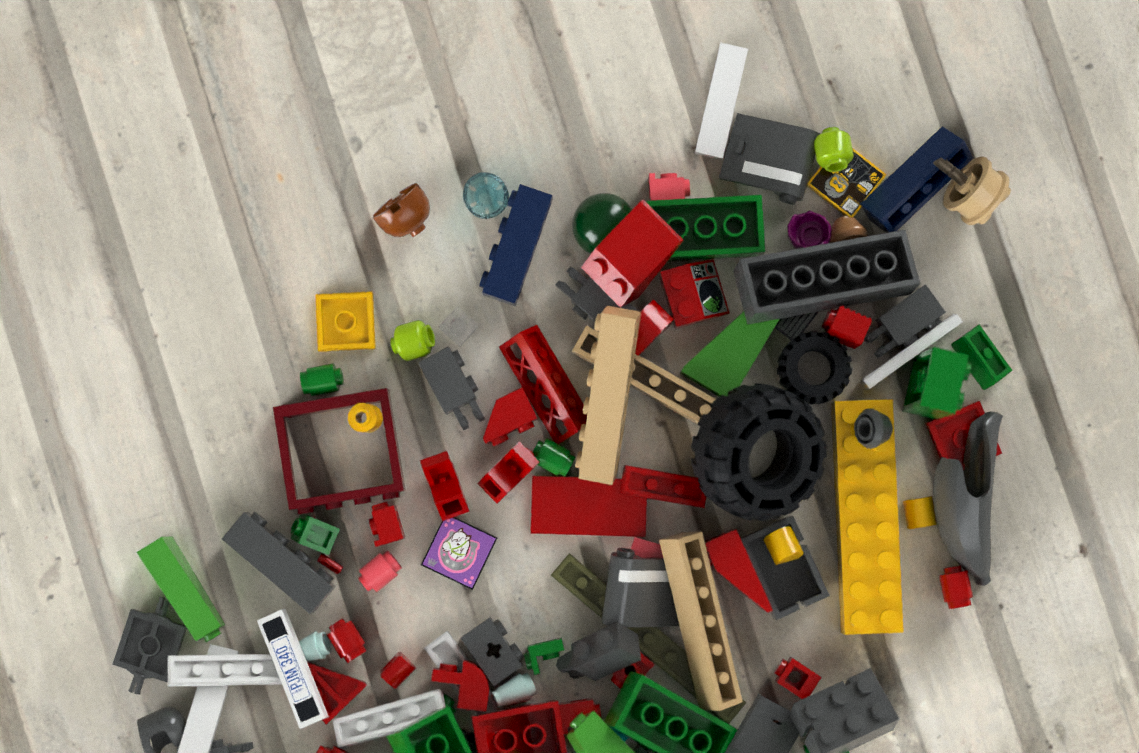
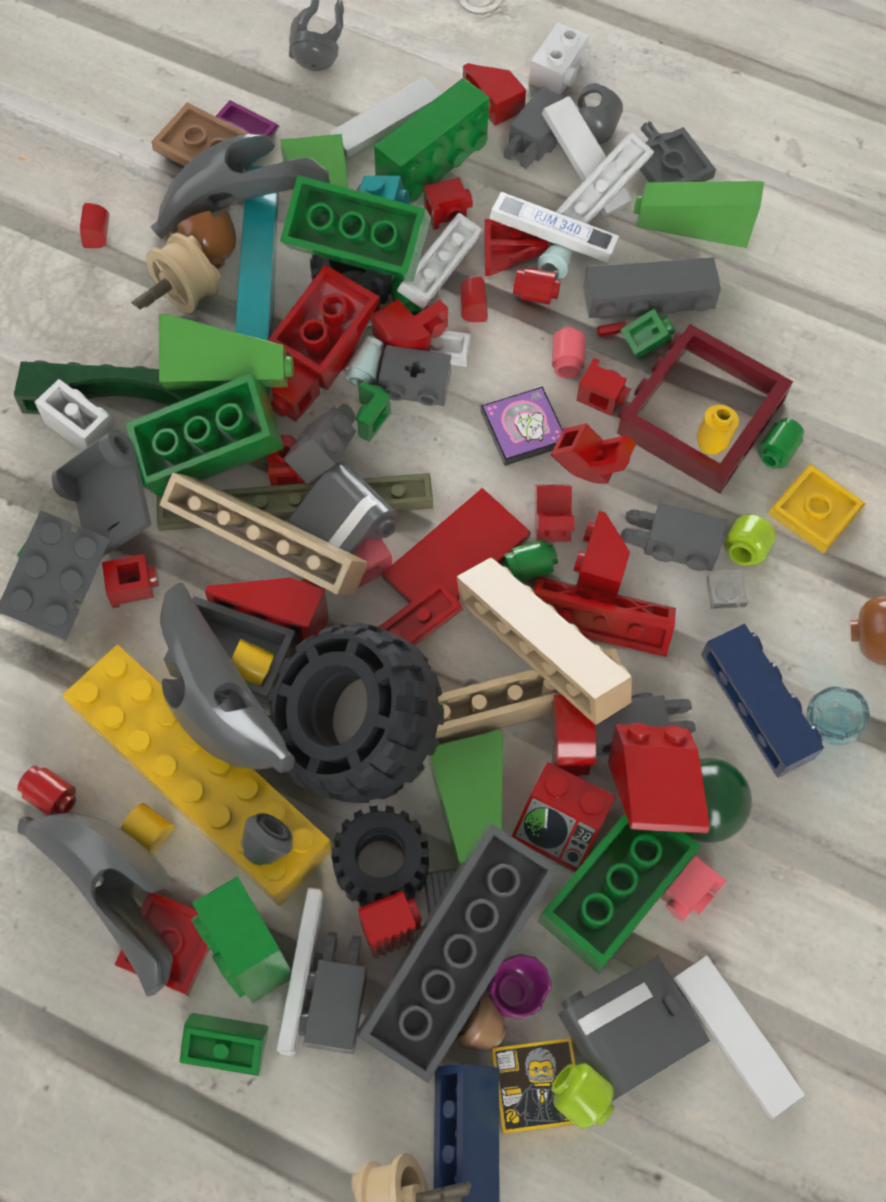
camera: 130 degrees right, 20 degrees down
(827, 537) = (225, 727): none -> dark grey piece

